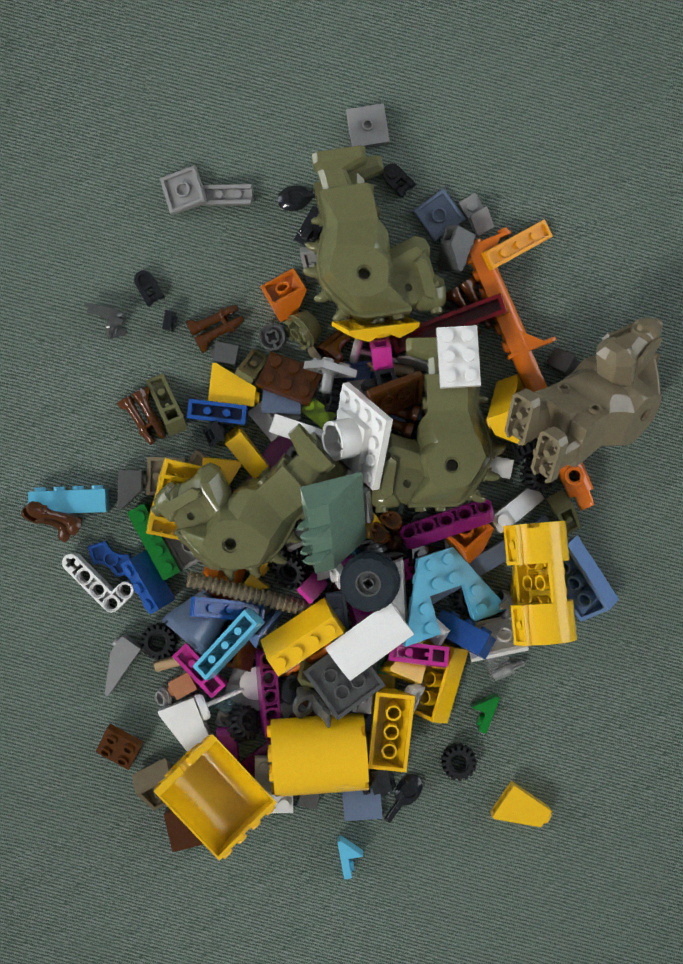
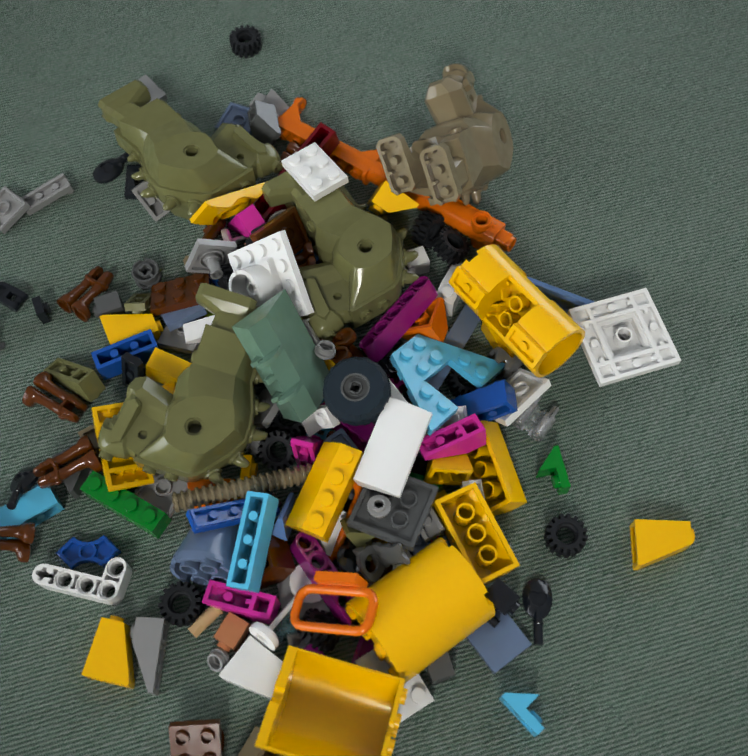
camera: 30 degrees left, 25 degrees down
(86, 477) = (21, 483): none -> black piece
(92, 649) = (111, 654): none -> yellow slope
(144, 496) = (50, 469): none -> reddish brown piece
(147, 582) = (137, 546): blue brick -> none
(271, 714) = (335, 584): none -> orange bar
(285, 294) = (139, 237): orange slope -> none
(303, 328) = (169, 249): olive cone -> none
(327, 672) = (379, 512): none -> light grey plate
(374, 524) = (325, 350): none -> light grey plate
(392, 175) = (191, 114): black plate -> none
(504, 109) = (244, 34): none -> black tyre
(516, 245) = (314, 103): light orange tile -> none
(620, 666) = (624, 337): none -> white piece

